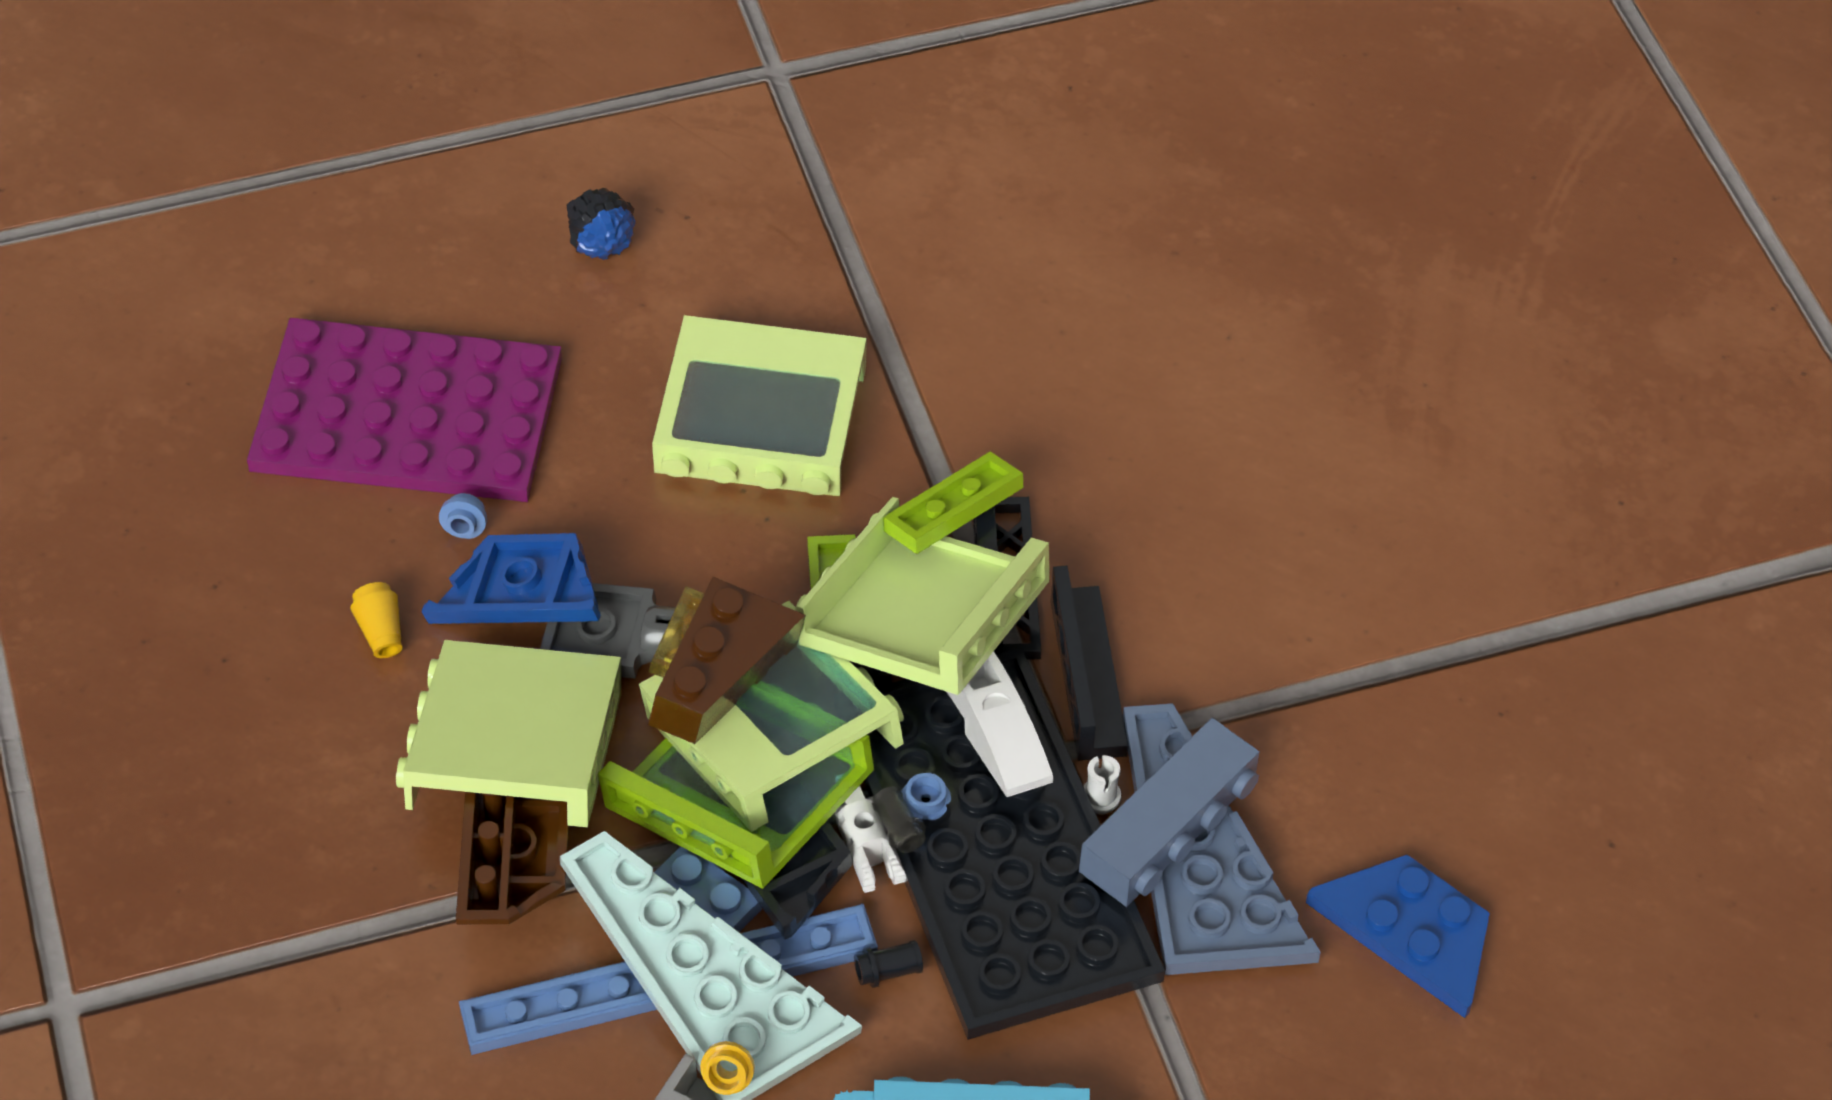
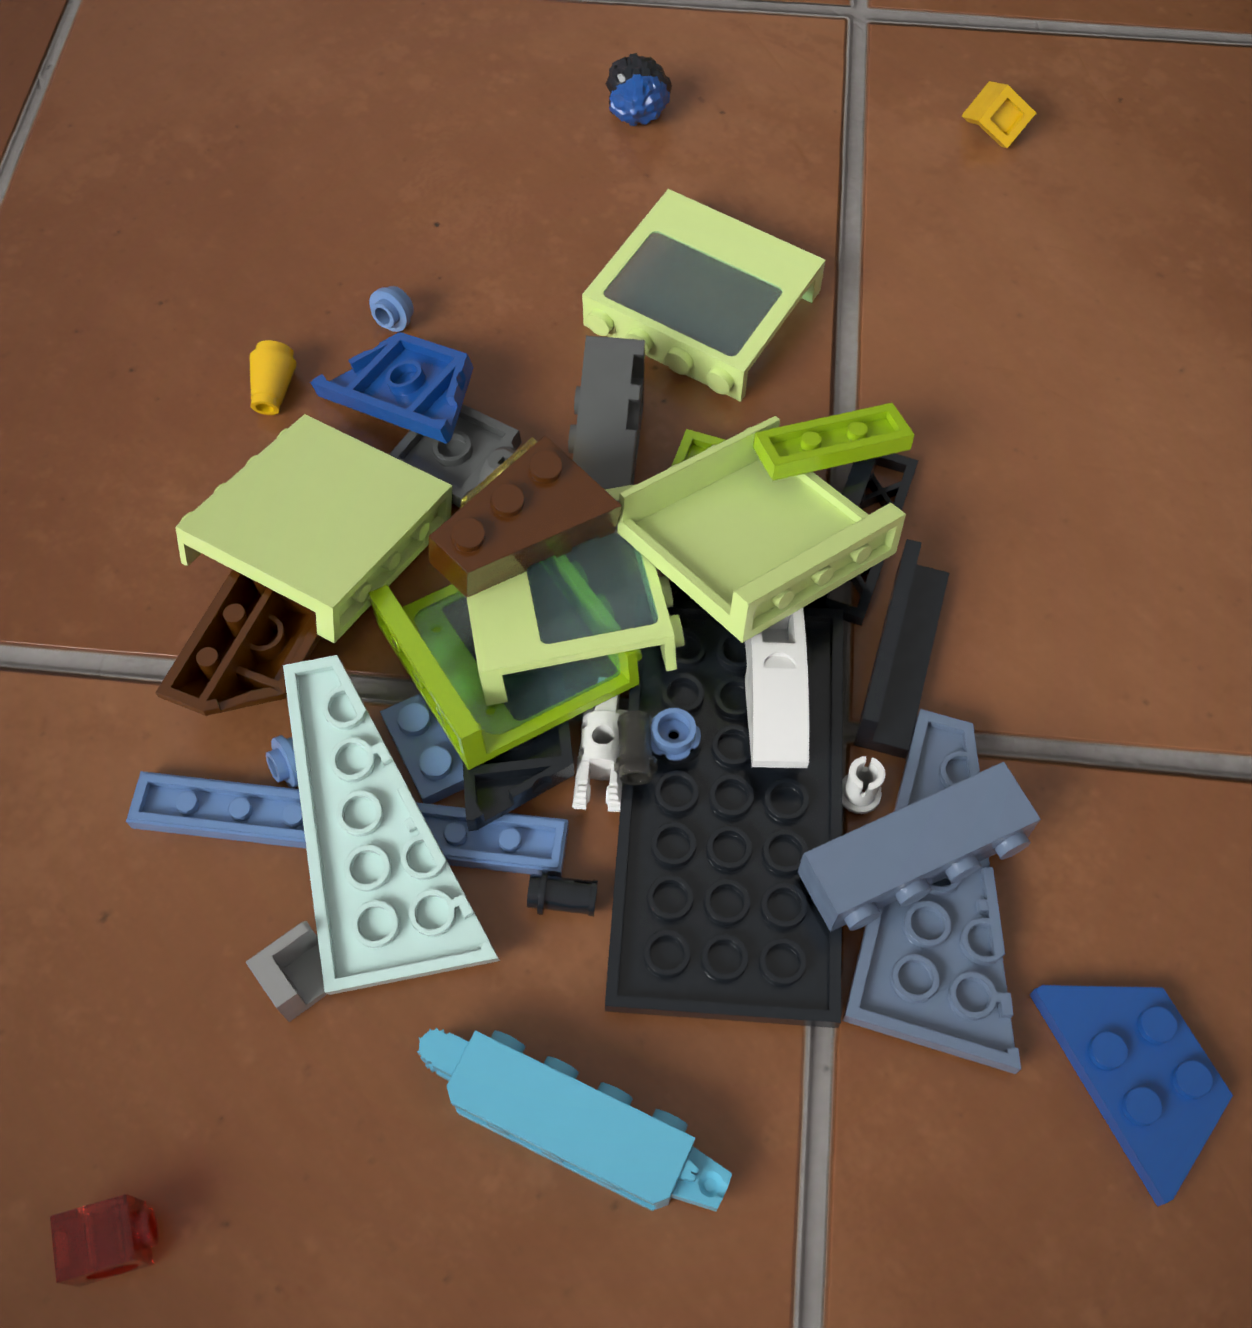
camera: 25 degrees right, 10 degrees up
(406, 409) = (399, 203): magenta plate -> none
(590, 944) = (282, 761): none -> medium blue plate
(722, 1080) = (332, 956): yellow plate -> none
(729, 536) = (609, 410): none -> dark grey wedge
(962, 140) = (999, 113): none -> yellow panel

